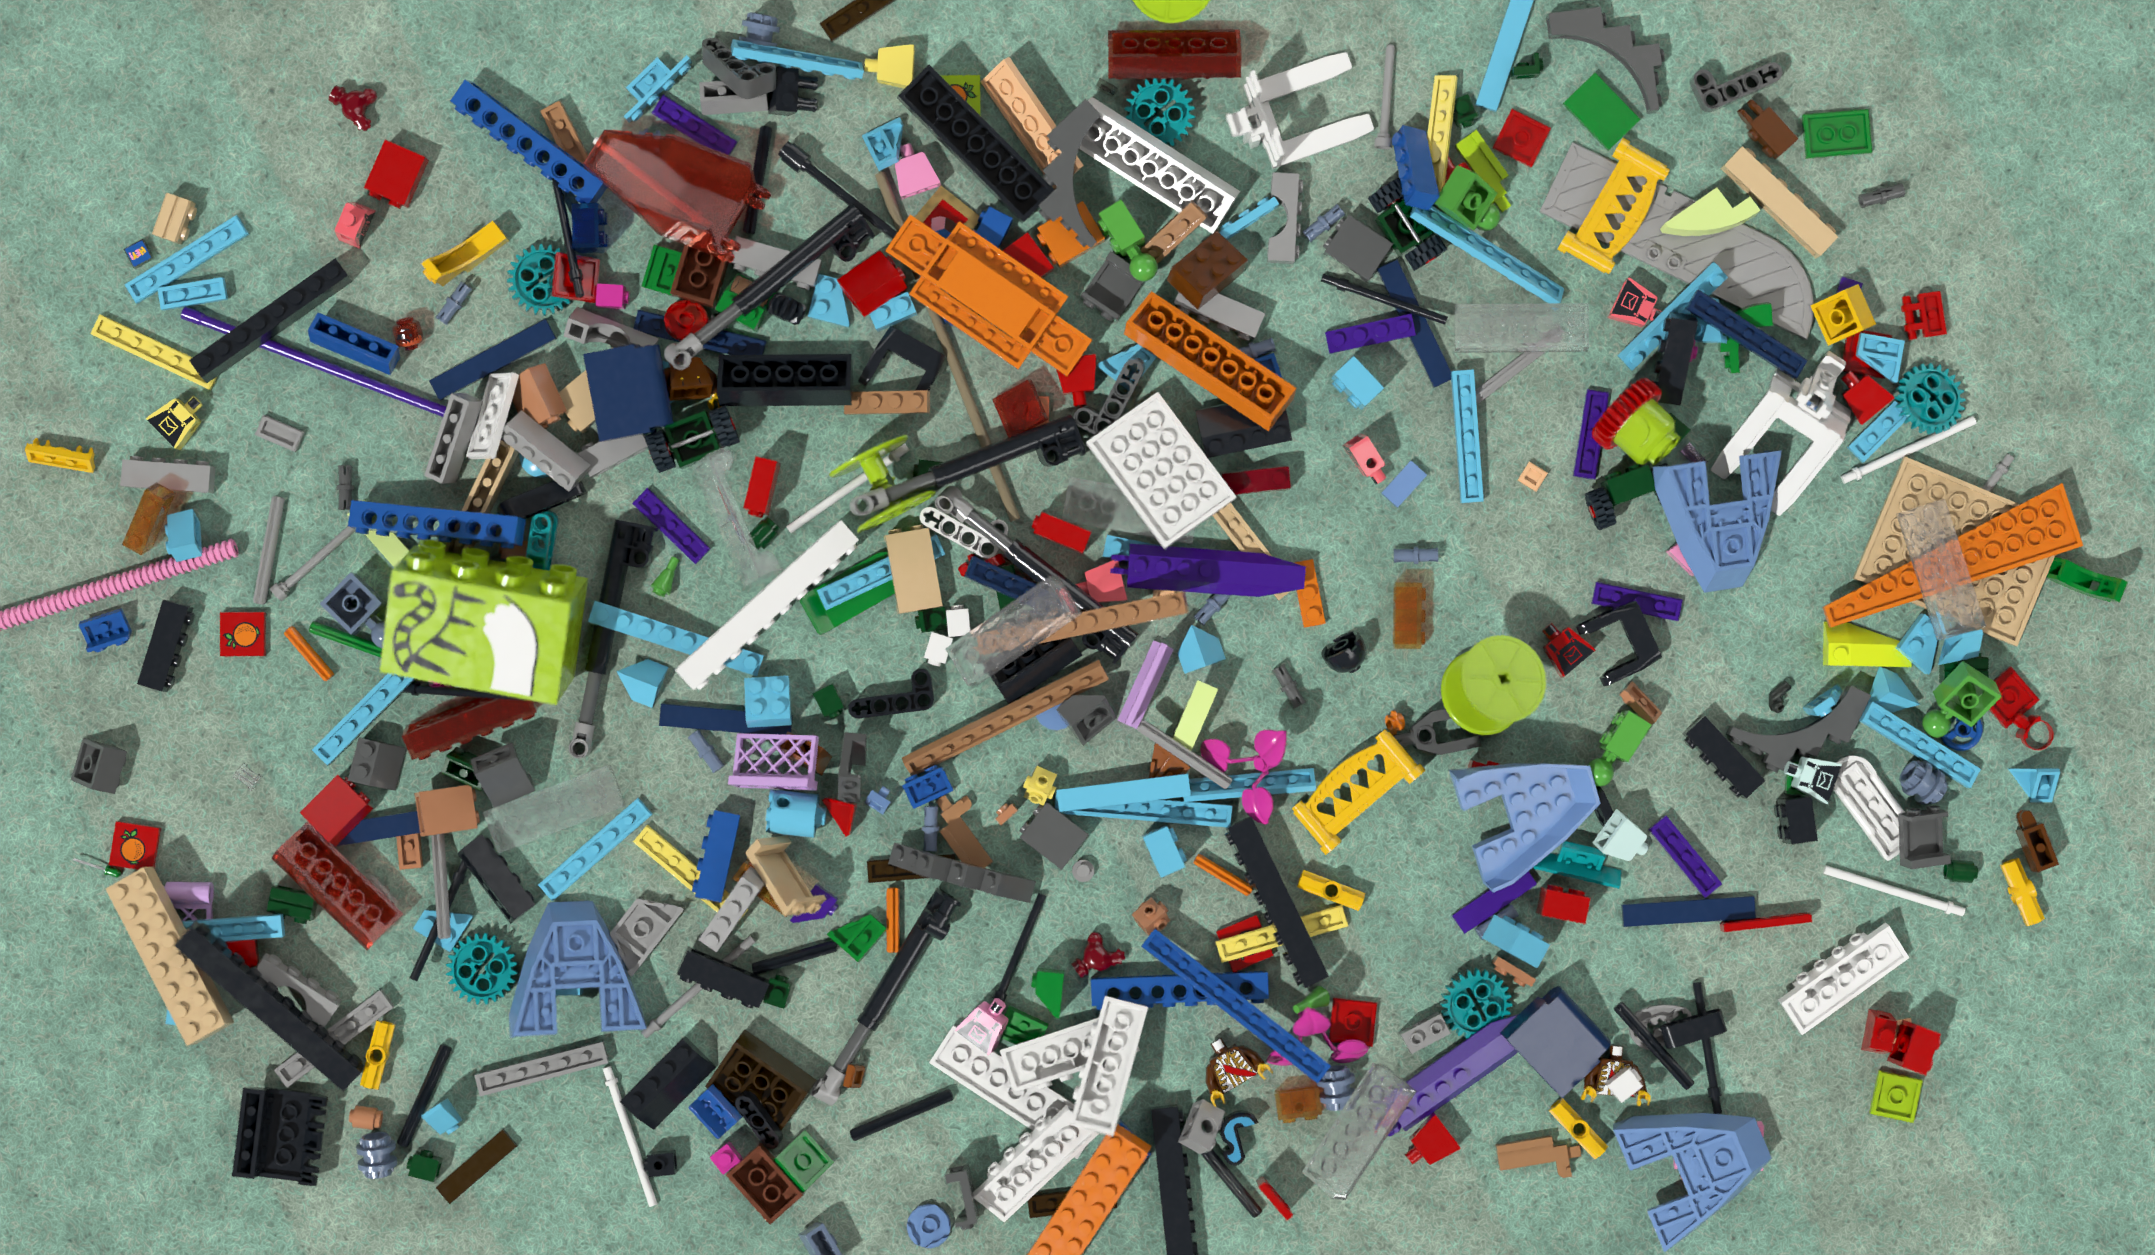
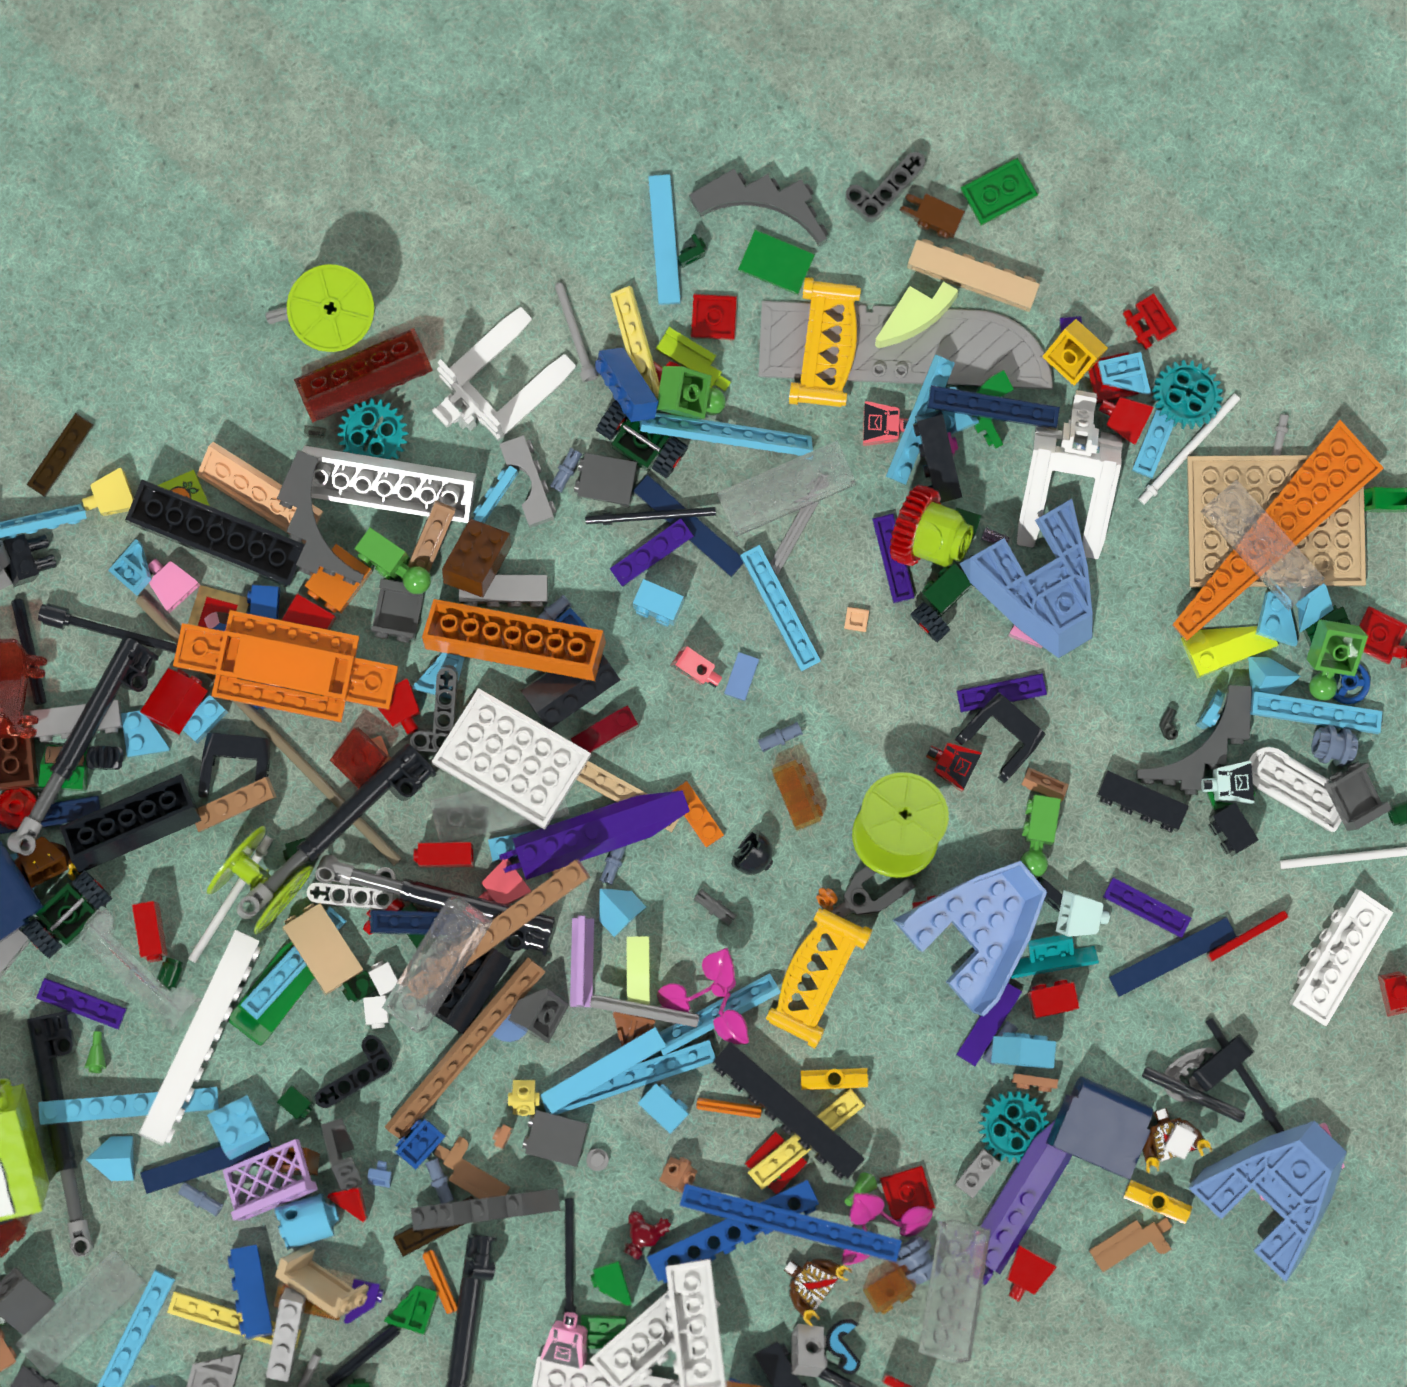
camera: 20 degrees left, 5 degrees down
(1464, 112) = (651, 315): dark green bracket -> none
(1881, 195) = (1063, 230): dark grey pin -> none

